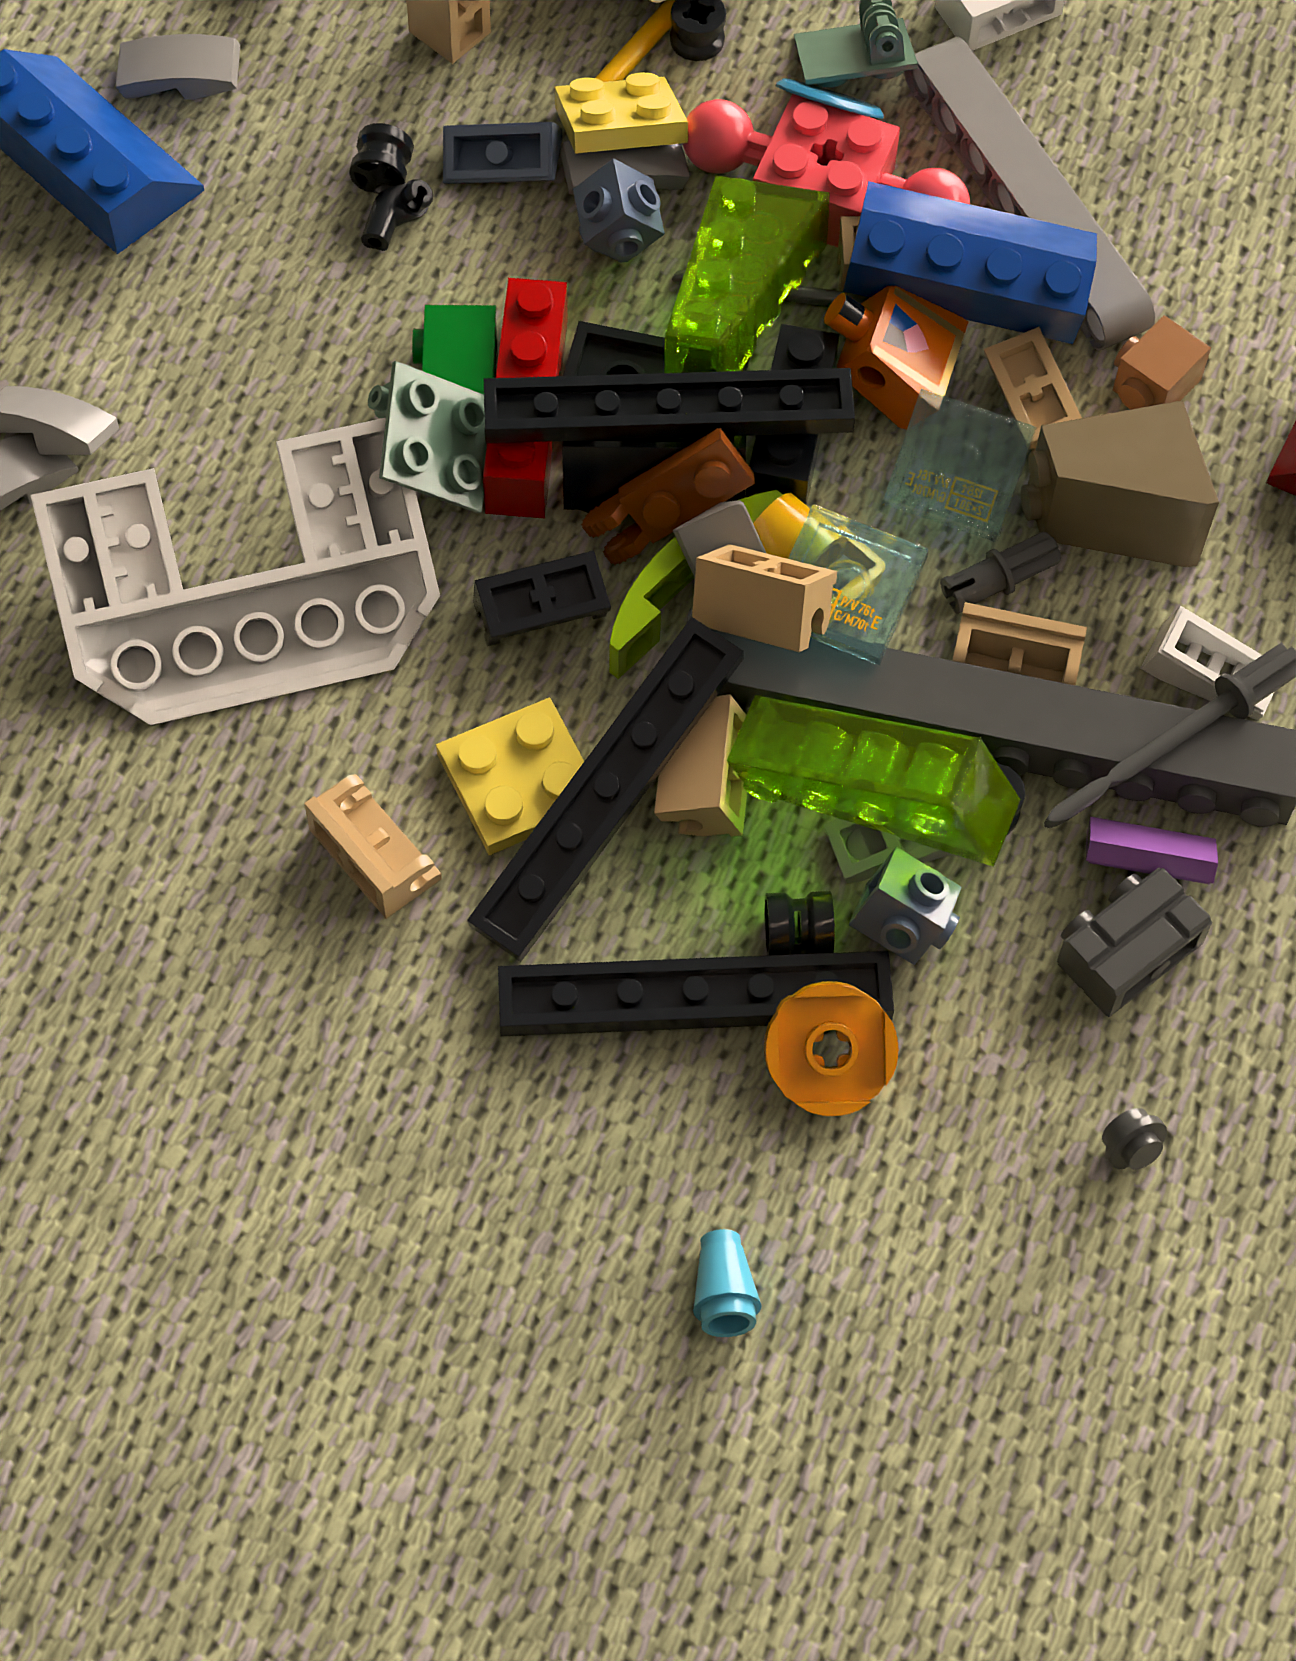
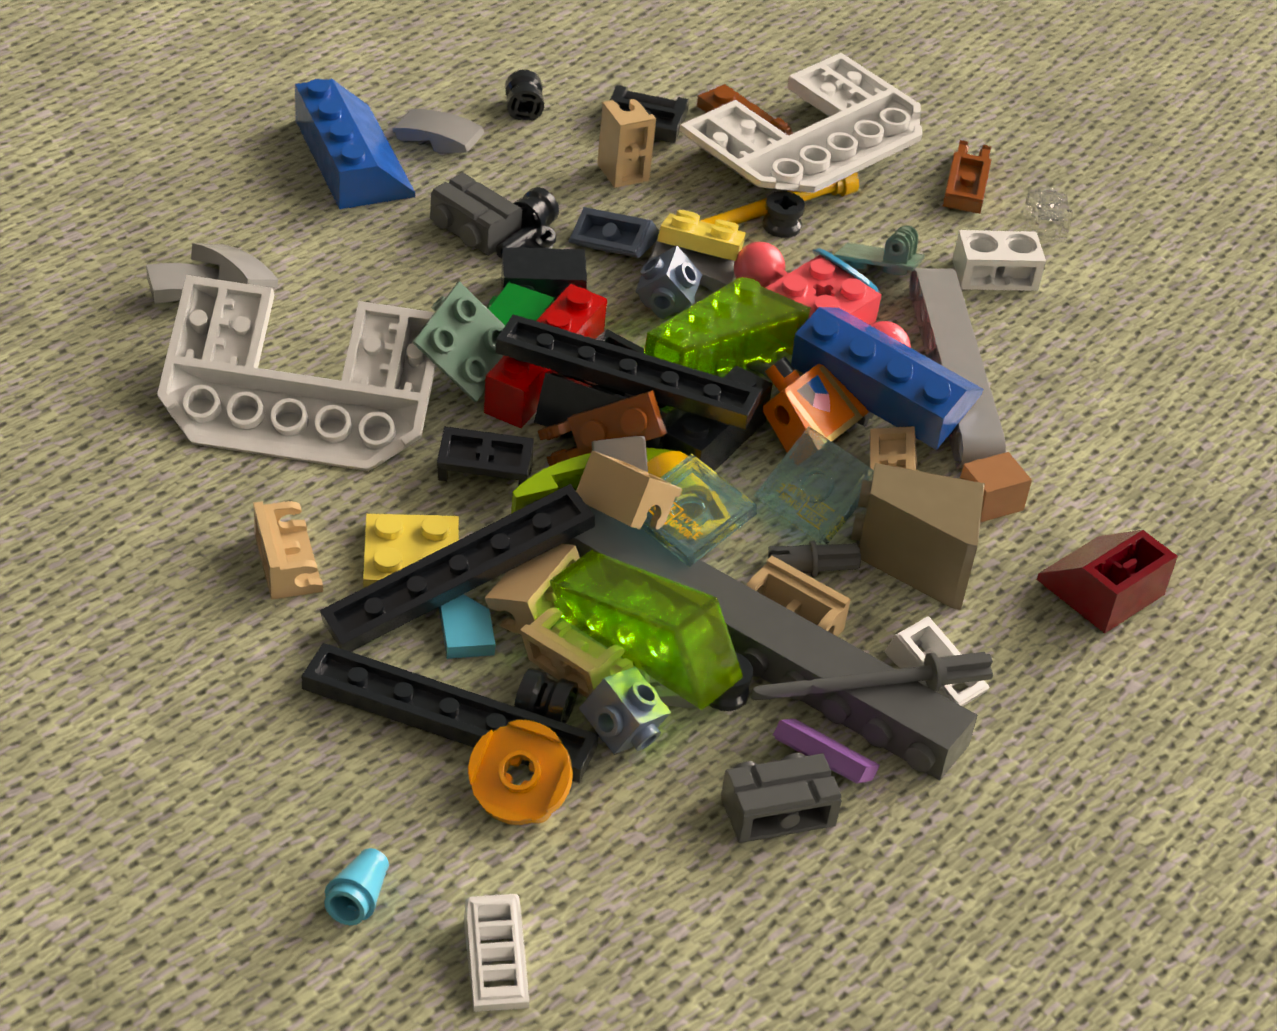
camera: 20 degrees right, 20 degrees down
(307, 196) = (474, 213): none -> dark grey brick
(454, 265) = (544, 269): none -> black brick
(648, 860) = (466, 628): none -> medium azure tile
(804, 849) = (570, 654): none -> hinge
(889, 1289) = (493, 919): none -> white slope
(1134, 1139) = (709, 915): dark grey plate -> none

